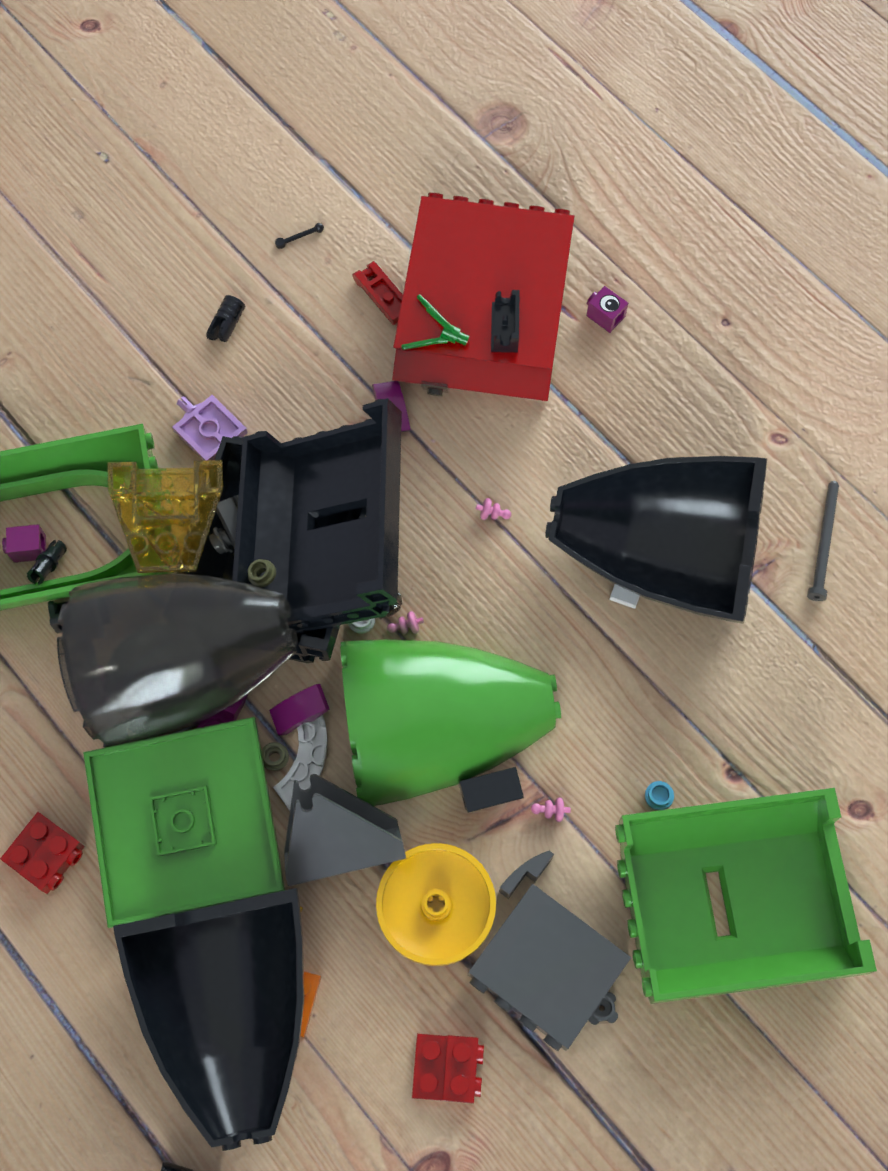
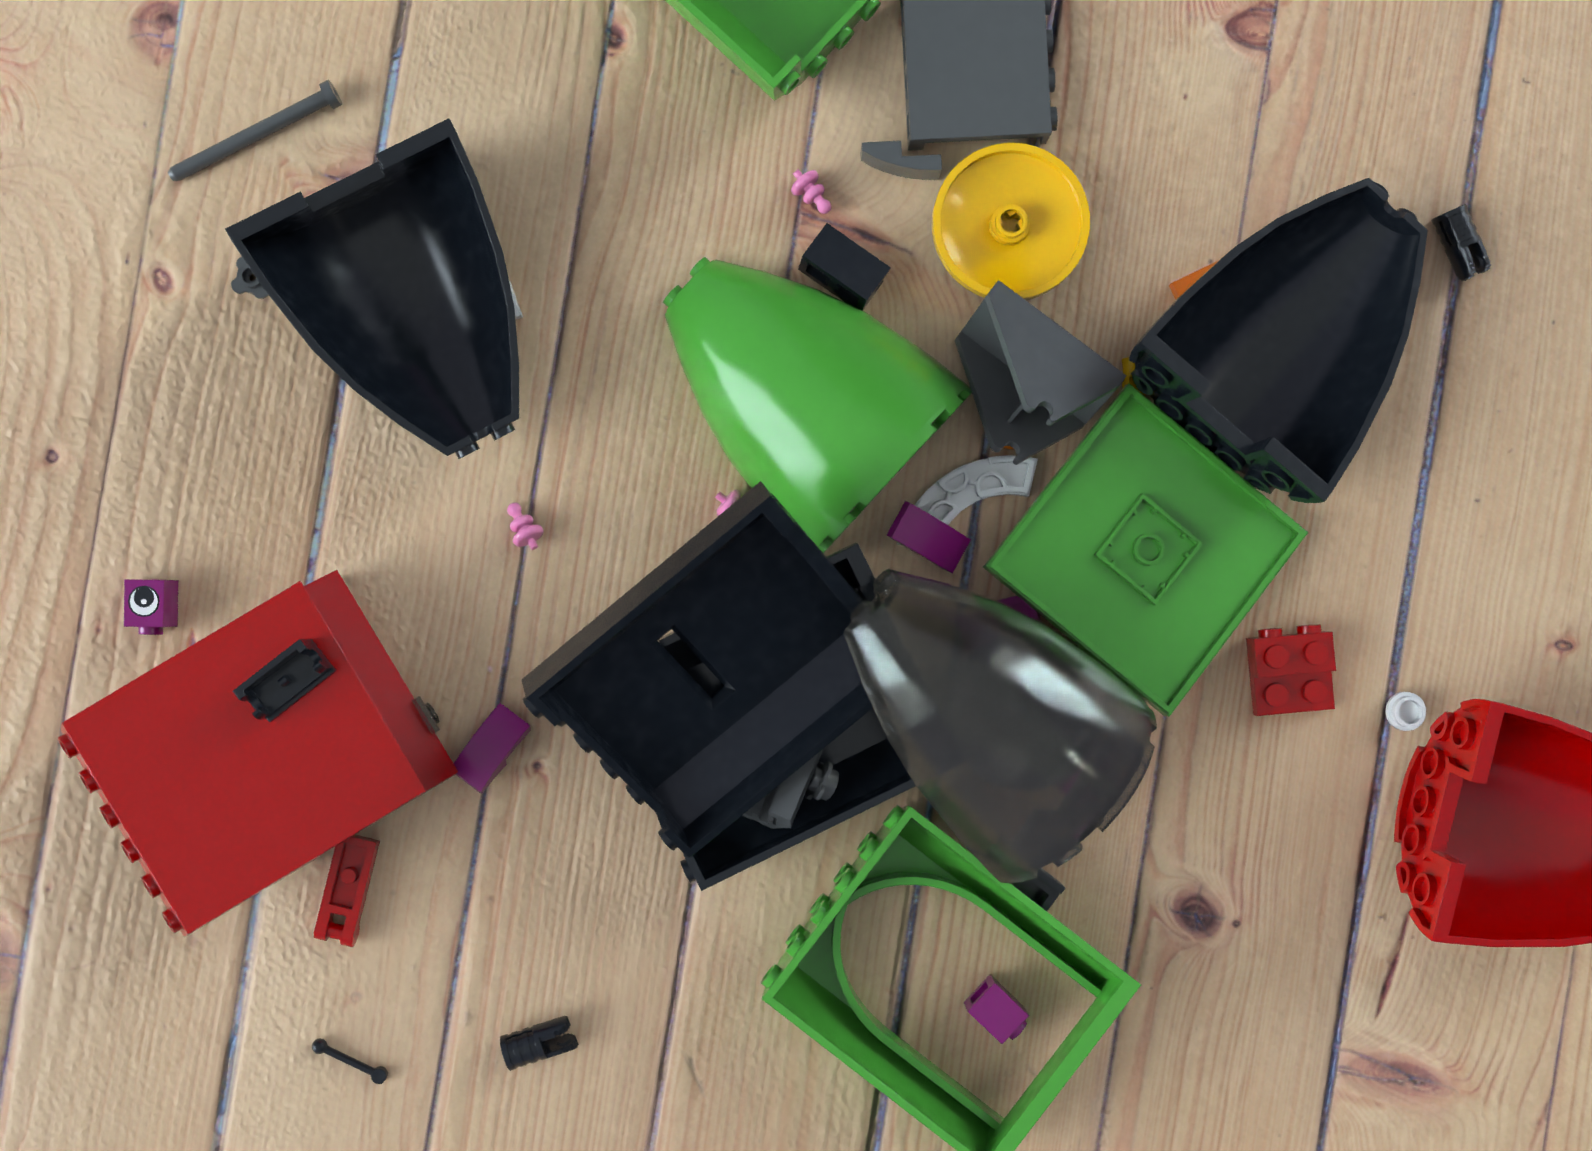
camera: 130 degrees left, 20 degrees up
(46, 562) = (999, 961): black pin -> none
(165, 512) = (851, 861): clear yellow wedge -> none
(206, 425) = (690, 934): lavender plate -> none
(257, 568) = (834, 699): olive plate -> none
(271, 748) = (1003, 514): olive plate -> none
(447, 1068) = (1152, 86): red plate -> none
(449, 332) = (355, 737): green plant -> none
(659, 795) = (703, 92): medium azure plate -> none

